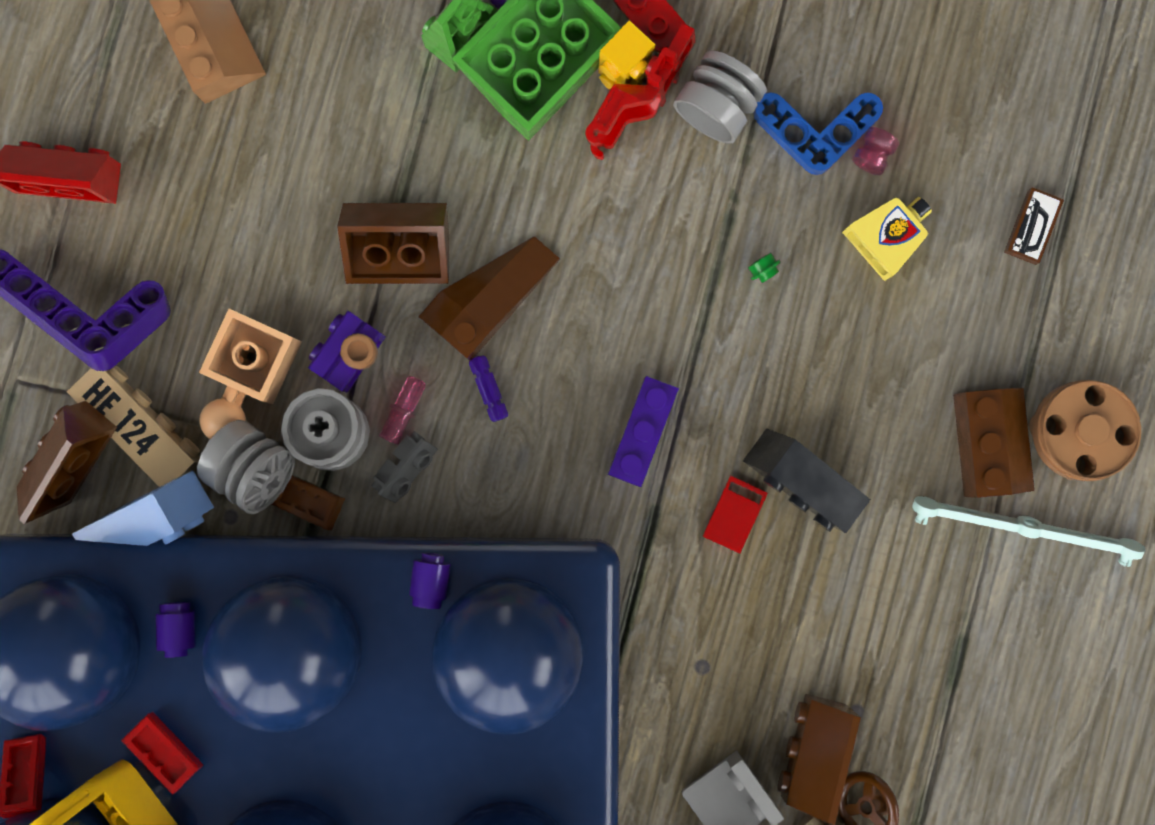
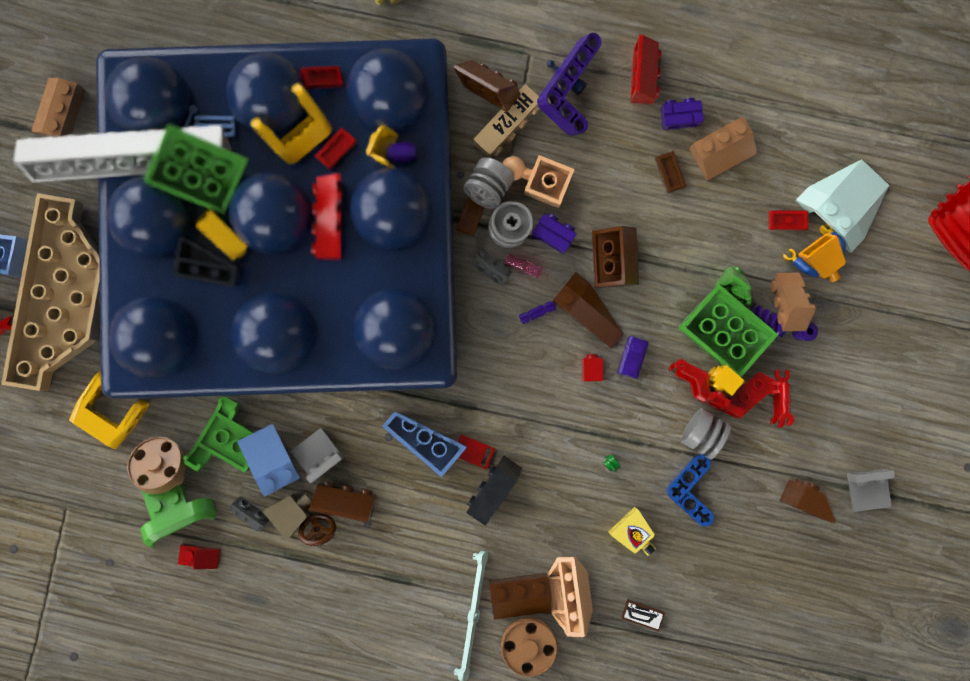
camera: 85 degrees right, 0 degrees up
(79, 295) = (579, 85): none -> dark blue hinge
(141, 111) = (681, 114): none -> dark purple brick
(153, 515) = (460, 137): medium blue slope -> none
(155, 671) = (379, 143): none -> yellow piece
(246, 137) = (670, 172): none -> reddish brown plate
(290, 772) = (328, 217): none -> red wedge
(359, 351) = (554, 240): medium nougat tile -> none
(429, 581) = (432, 285): dark purple brick -> none
(577, 220) = (632, 357): none -> dark purple brick
(594, 294) = (592, 368): none -> red brick
(643, 431) = (517, 398): dark purple arch -> none
(718, 601) = (427, 444): none -> medium blue wedge
(875, 151) = (680, 523): clear pink wheel -> none
(1000, 352) = (570, 596): none -> light nougat wedge

